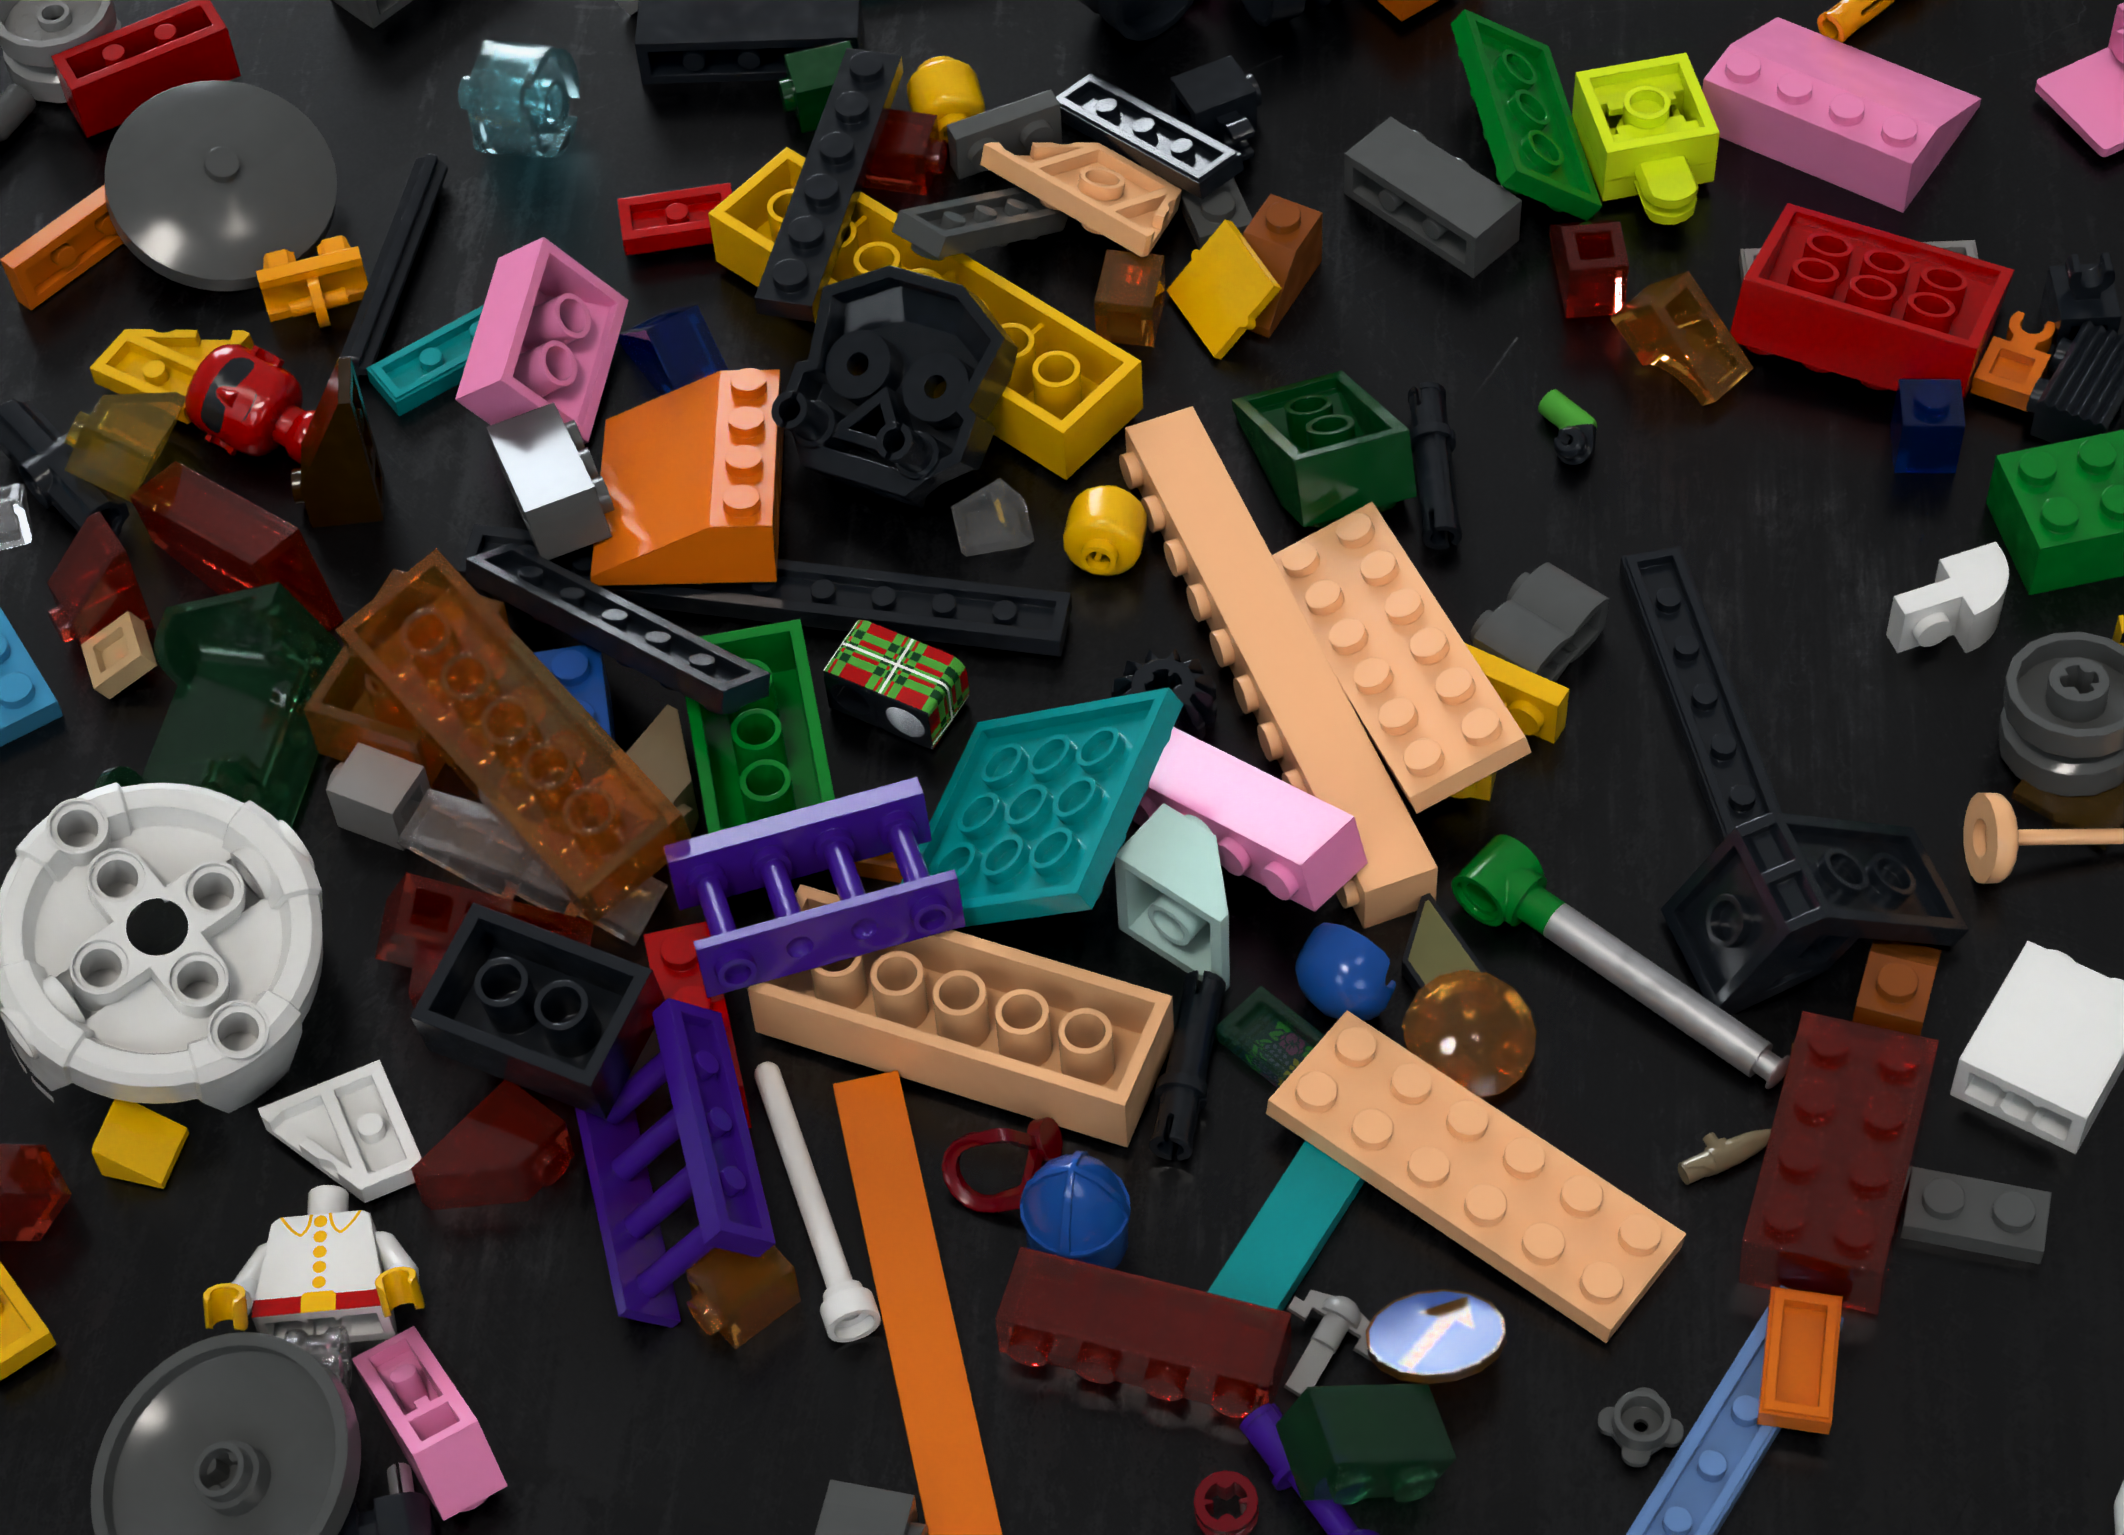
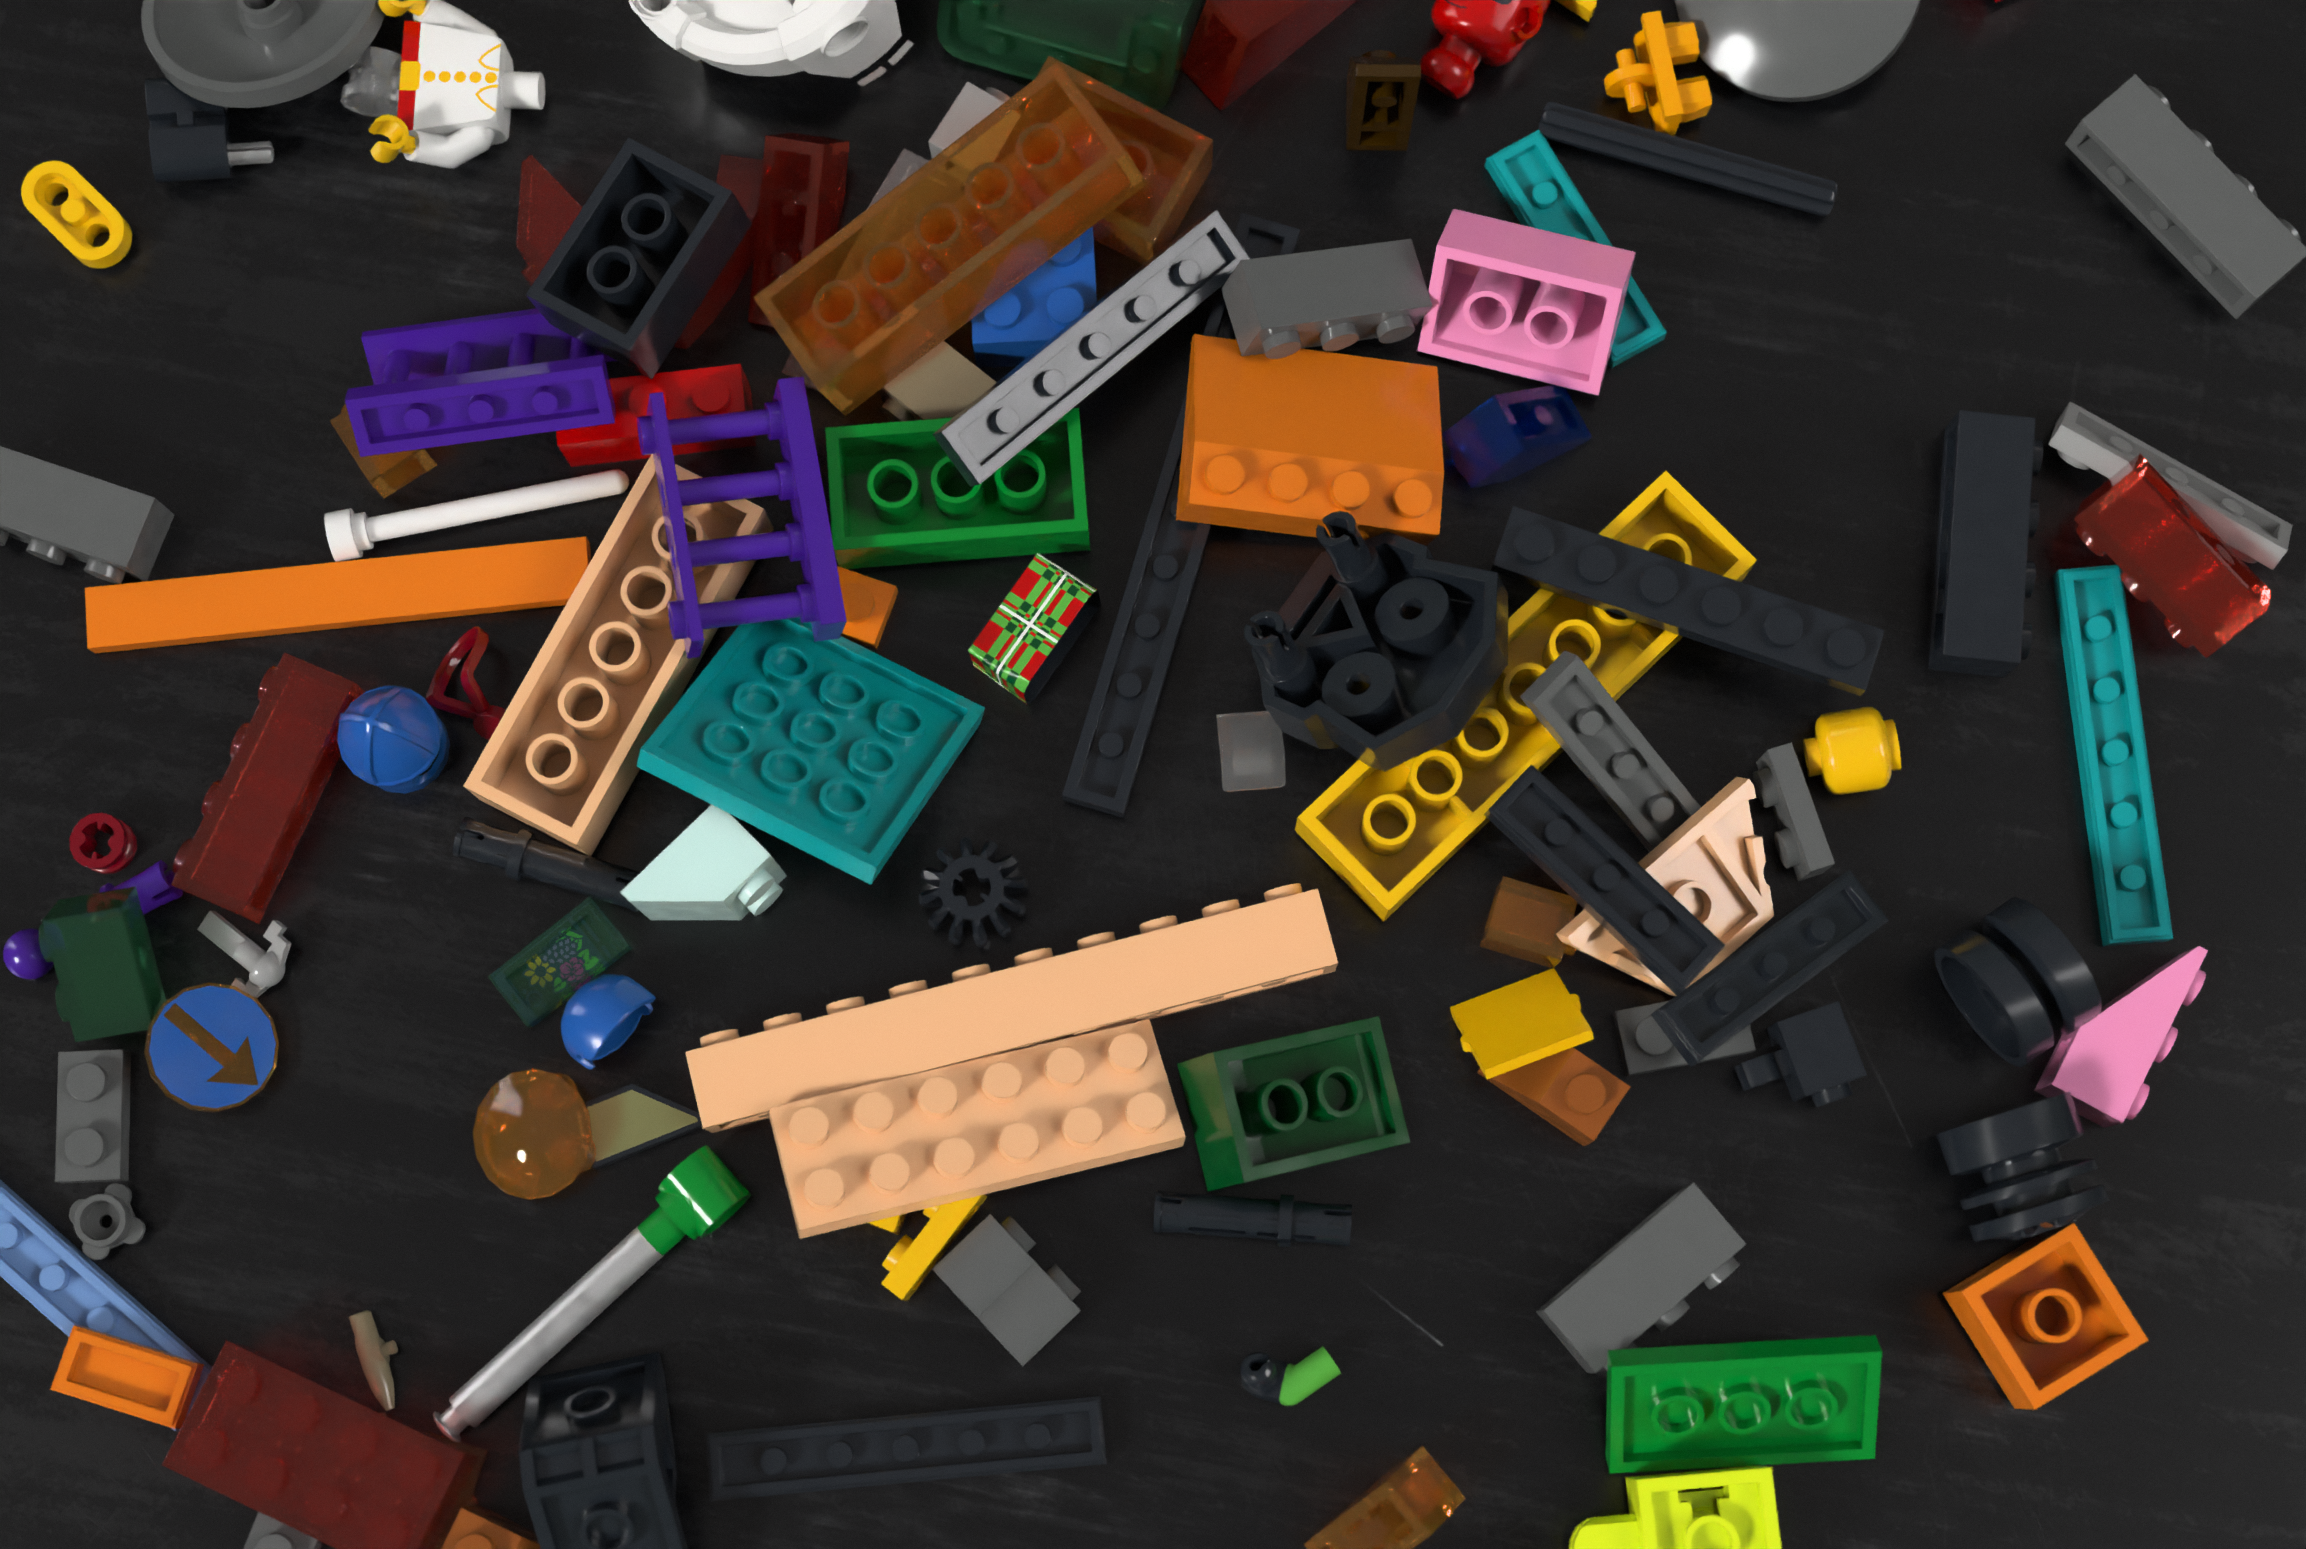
camera: 95 degrees right, 25 degrees up
(349, 1131) = (604, 111): white wing -> none
(431, 1423) = (293, 174): bright pink slope -> none
(521, 99) = (1890, 286): clear light blue brick -> none
(669, 218) = (1713, 449): red plate -> none
(810, 82) = (1902, 609): dark green brick -> none
(907, 153) = (1778, 706): clear red brick -> none
(1090, 215) = (1604, 880): none -> black tile
(1105, 527) = (1201, 857): yellow head -> none
(1260, 822) = (782, 948): brick -> none
(1289, 1231) = (385, 953): teal tile -> none
(1476, 1175) = (381, 1114): light nougat plate -> none
(1530, 1464) = (93, 1116): none -> dark grey plate
(1590, 267) = (1518, 1438): clear red slope -> none

